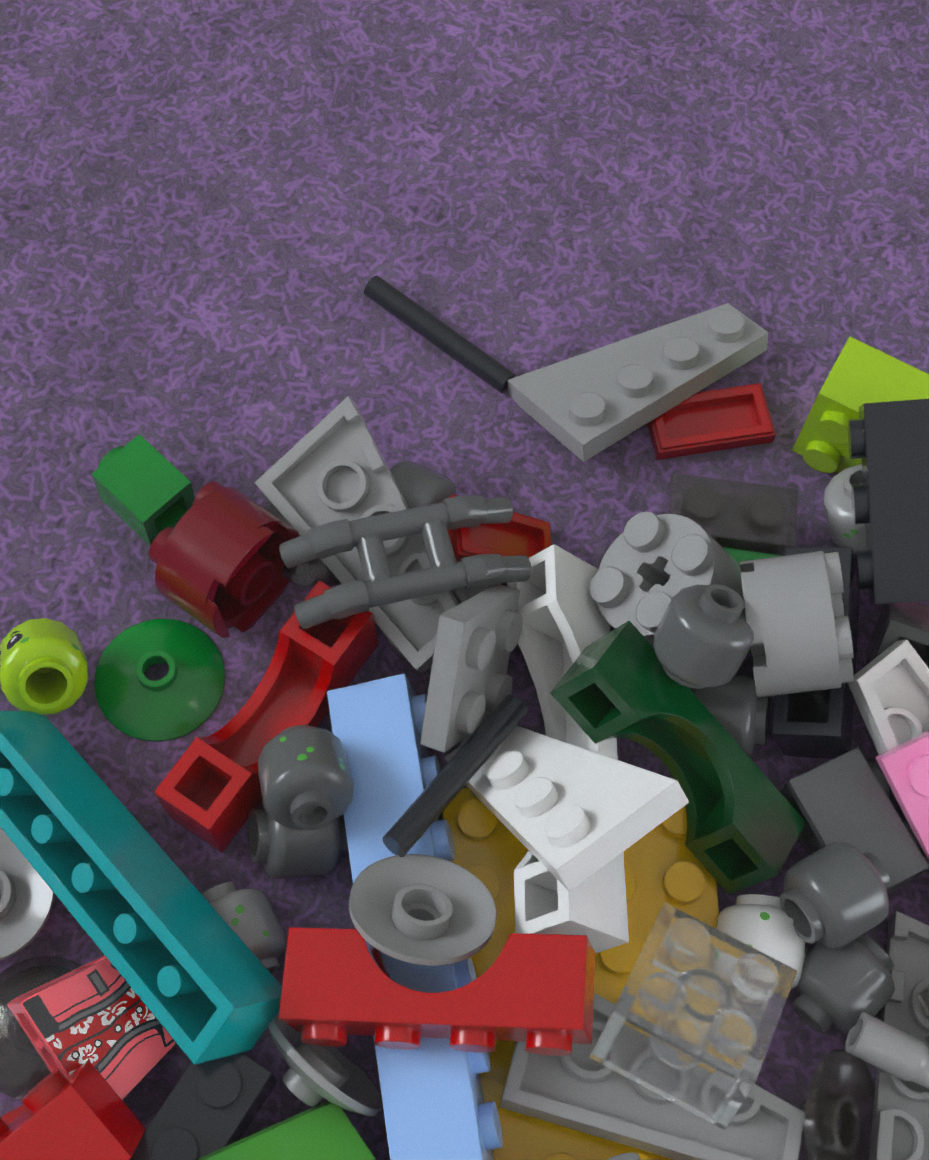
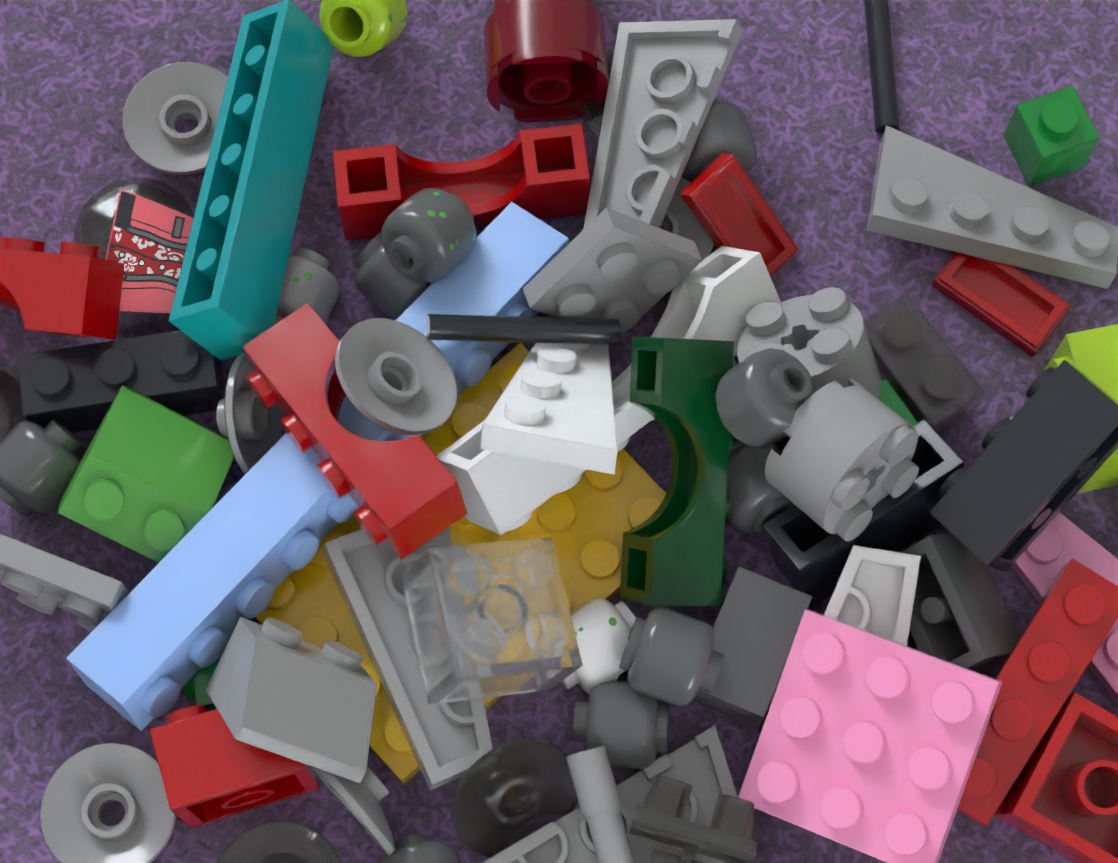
camera: 55 degrees right, 5 degrees up
(166, 706) = (435, 120): green dish -> none
(380, 585) = (659, 196): dark grey piece -> none
(623, 282) = (1051, 135): none -> green brick

